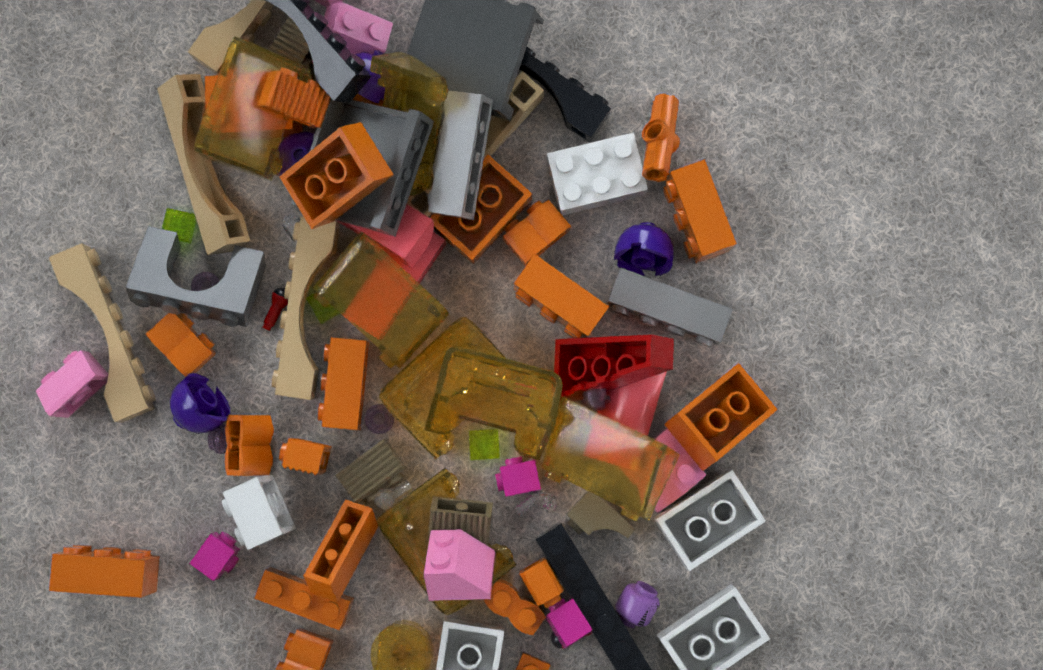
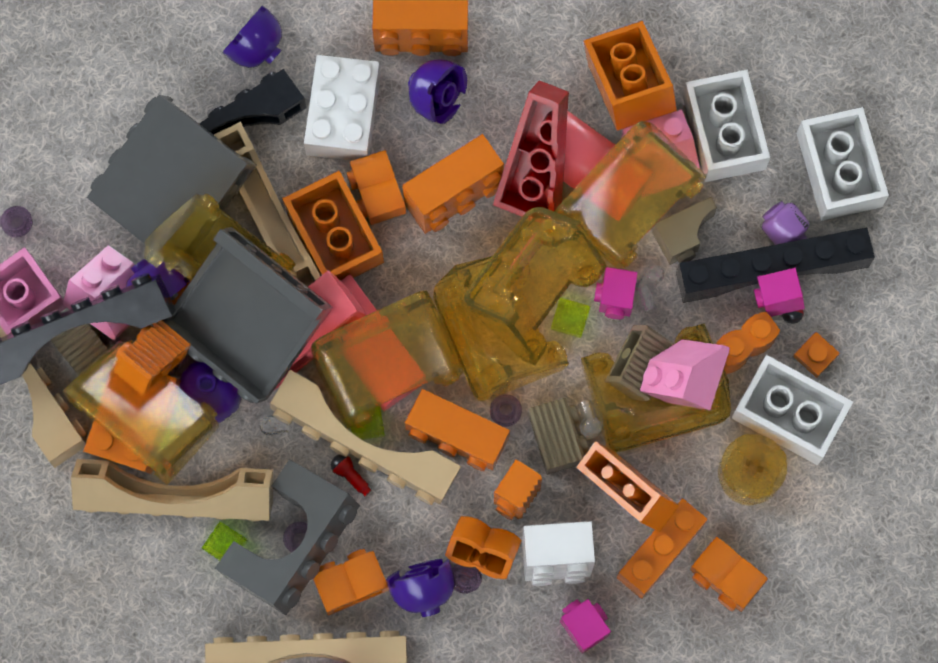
camera: 70 degrees left, 10 degrees down
(336, 175) = (250, 335): orange brick -> none
(460, 155) = (277, 218): light grey brick -> none
(542, 583) = (730, 303): orange brick -> none
(595, 399) = (566, 184): plate -> none
(629, 74) = (256, 40): none -> dark purple cylinder
(660, 137) = (332, 33): orange piece -> none
(669, 306) = (502, 88): light grey brick -> none

